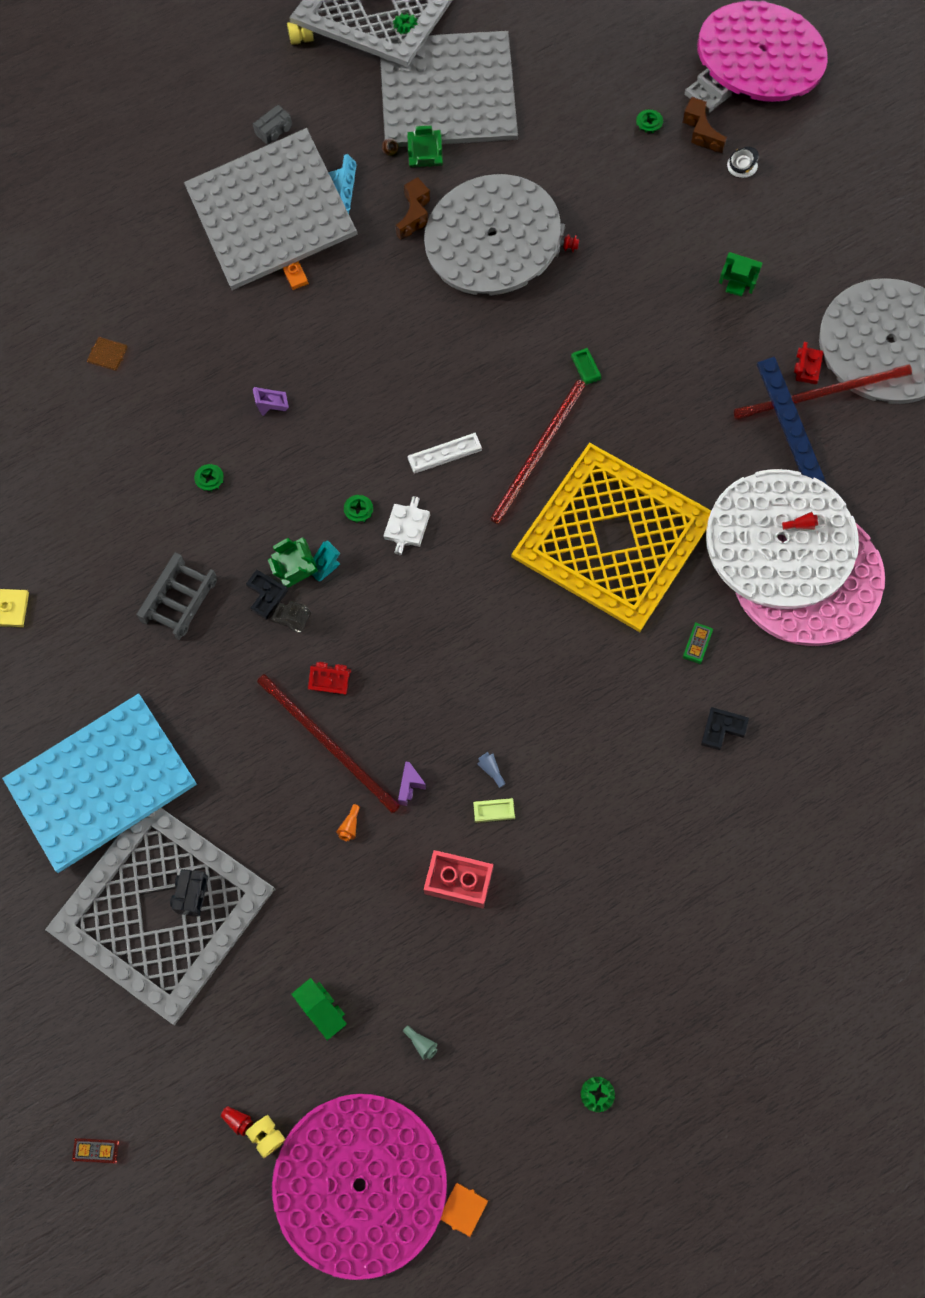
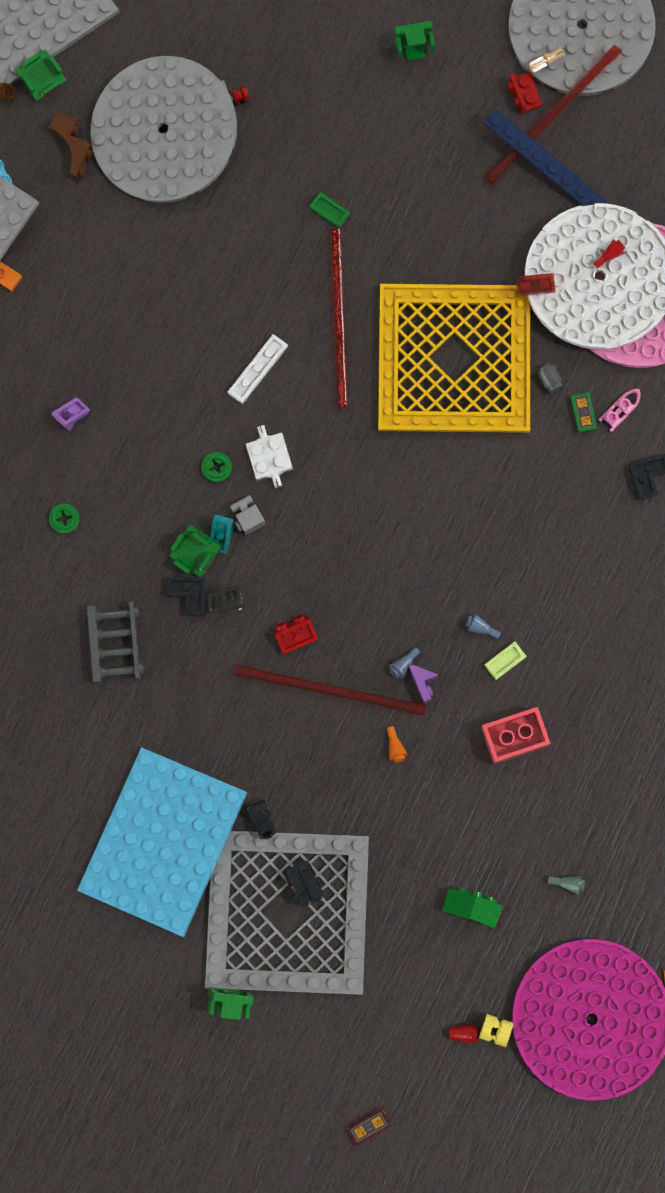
camera: 30 degrees left, 10 degrees up
(52, 954) = (229, 1003): none -> green panel
(193, 811) = (260, 817): none -> black piece
(356, 563) = (249, 518): none -> light grey brick
(398, 759) = (400, 667): none -> sand blue cone
(686, 598) = (550, 378): none -> dark grey brick
(720, 512) = (535, 284): none -> clear red tile
(737, 656) = (623, 405): none -> bright pink piece
(842, 346) = (545, 60): none -> tan axle

